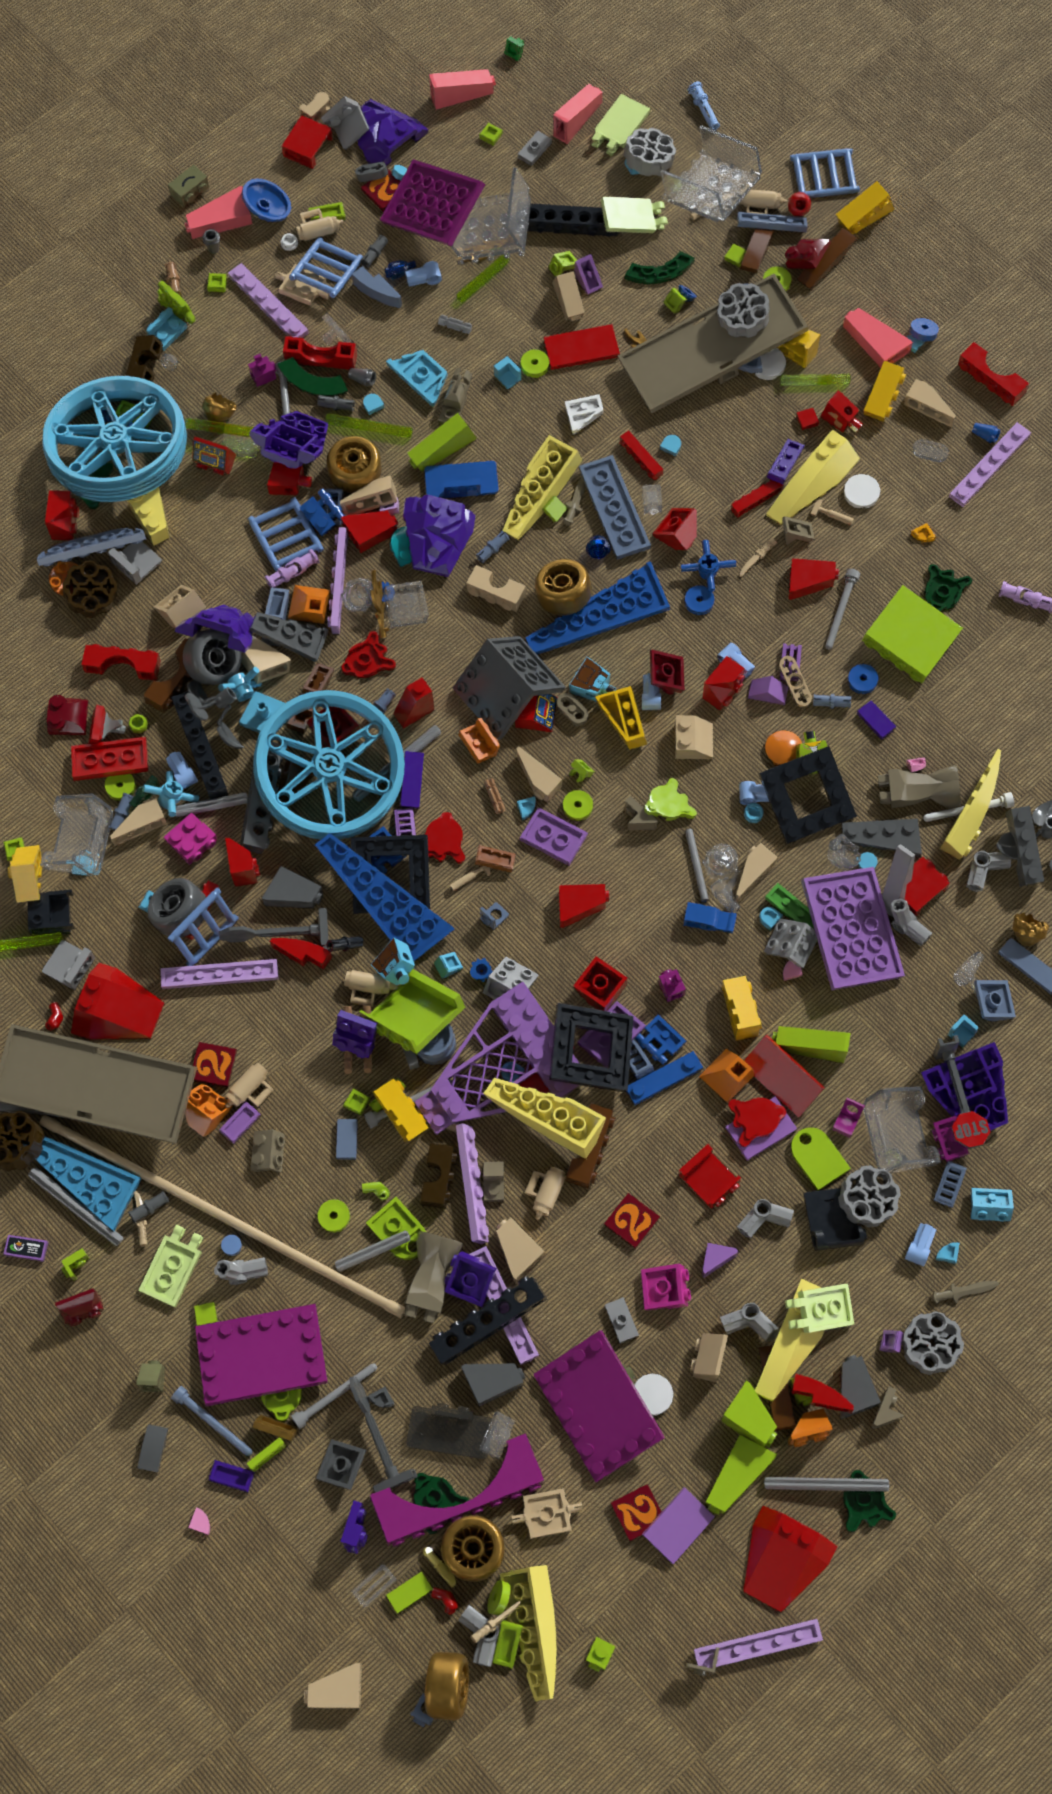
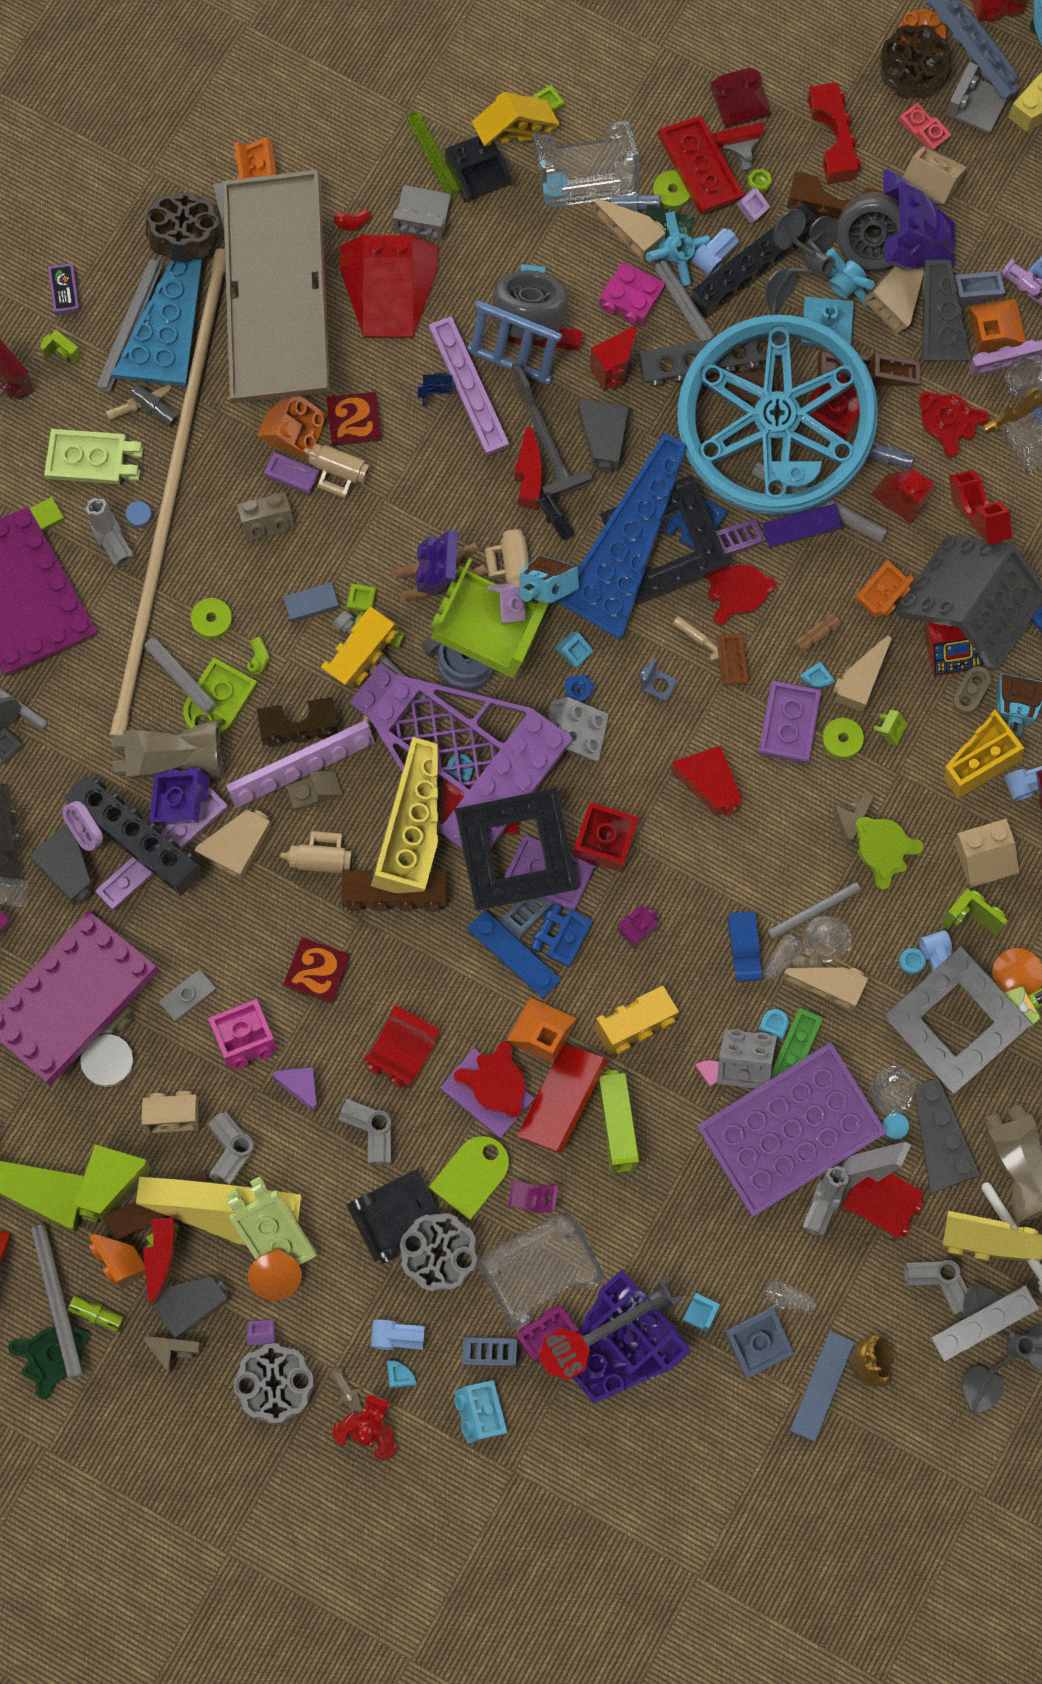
camera: 65 degrees right, 5 degrees up
(142, 601) = (923, 127): none -> coral slope
(155, 733) = (753, 205): none -> lavender plate
(209, 995) = (435, 384): none -> clear blue bracket
(379, 766) = (796, 473): none -> medium azure plate
(400, 991) = (511, 604): none -> lavender bracket
(432, 662) = (987, 518): none -> red arch
(470, 1355) = (82, 825): none -> lavender plate
(731, 756) = (973, 904): none -> lime bracket
(843, 1458) = (95, 1314): none -> lime pin
(853, 1317) = (274, 1275): none -> orange dish
(982, 1284) = (368, 1428): none -> red animal

